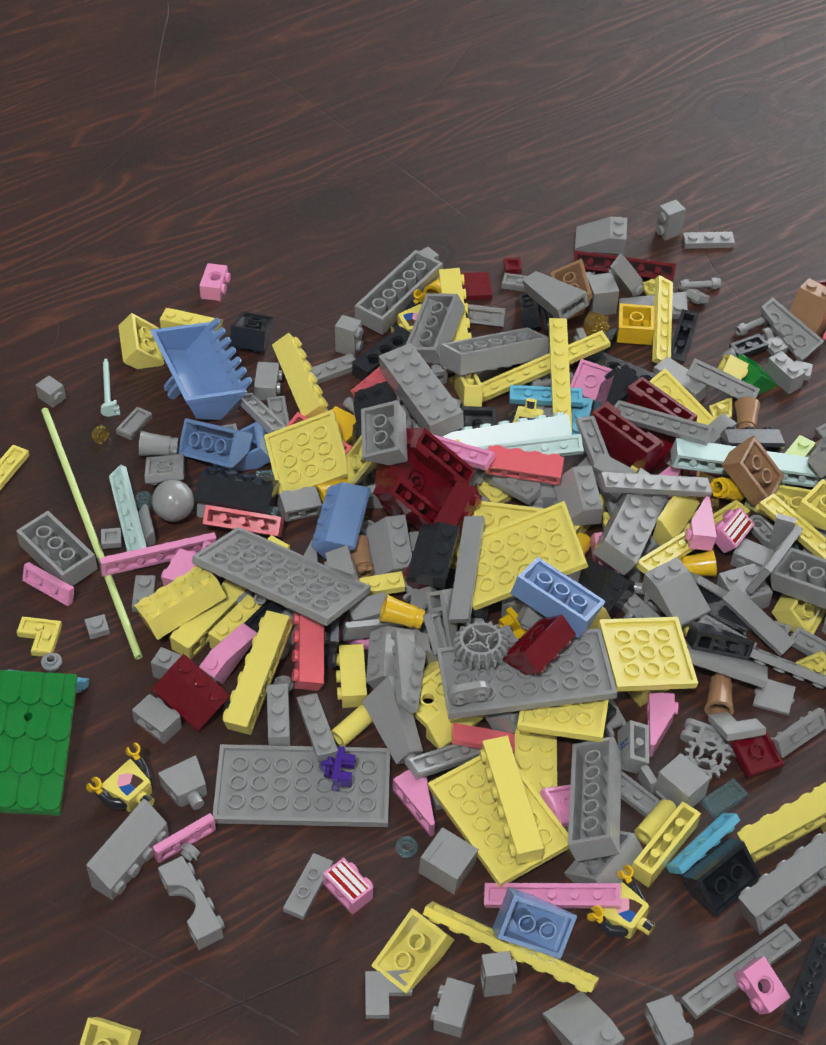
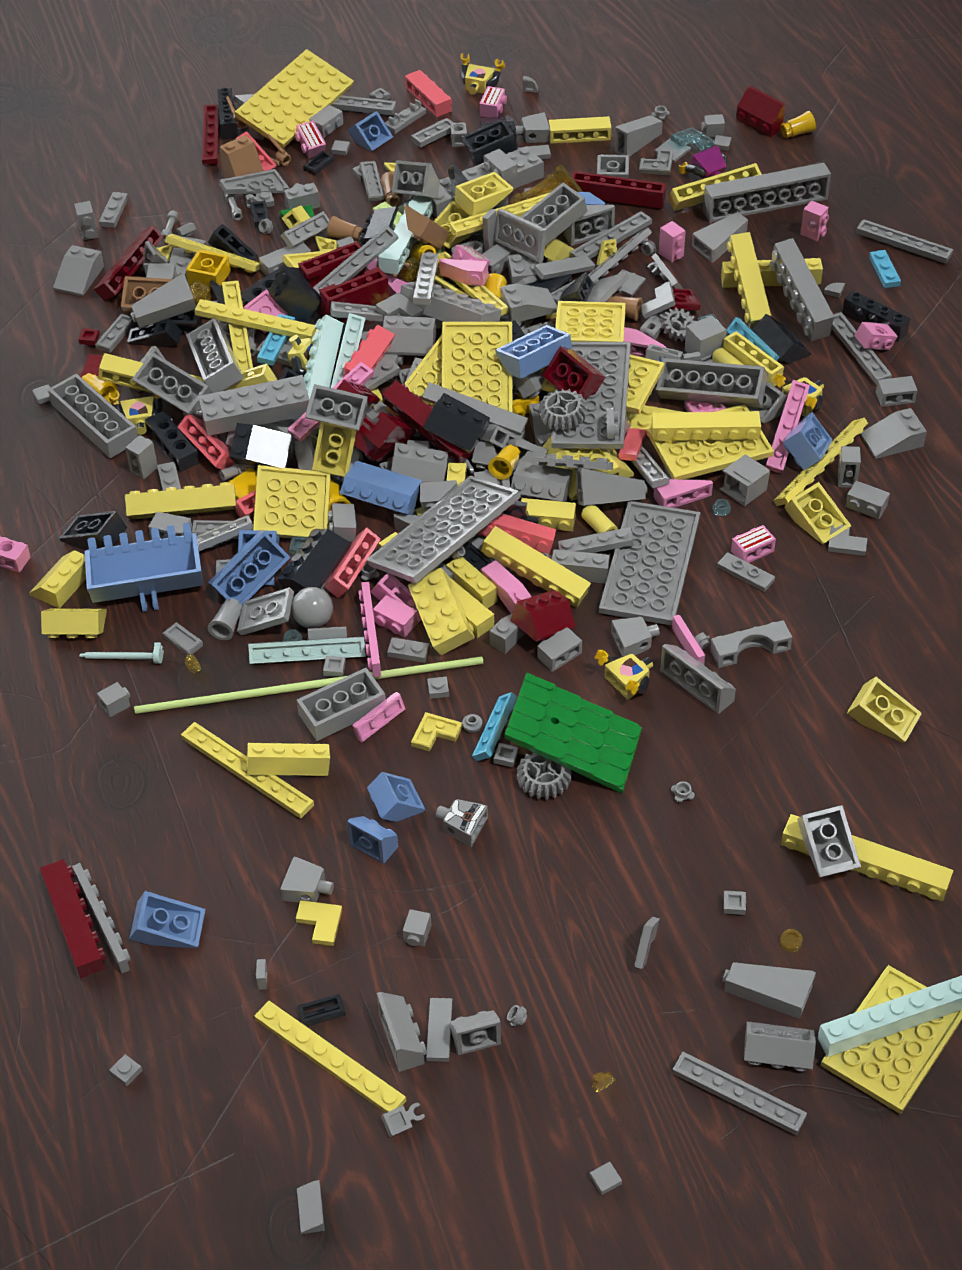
camera: 75 degrees left, 0 degrees up
(339, 777) = (646, 529): dark purple hips -> none

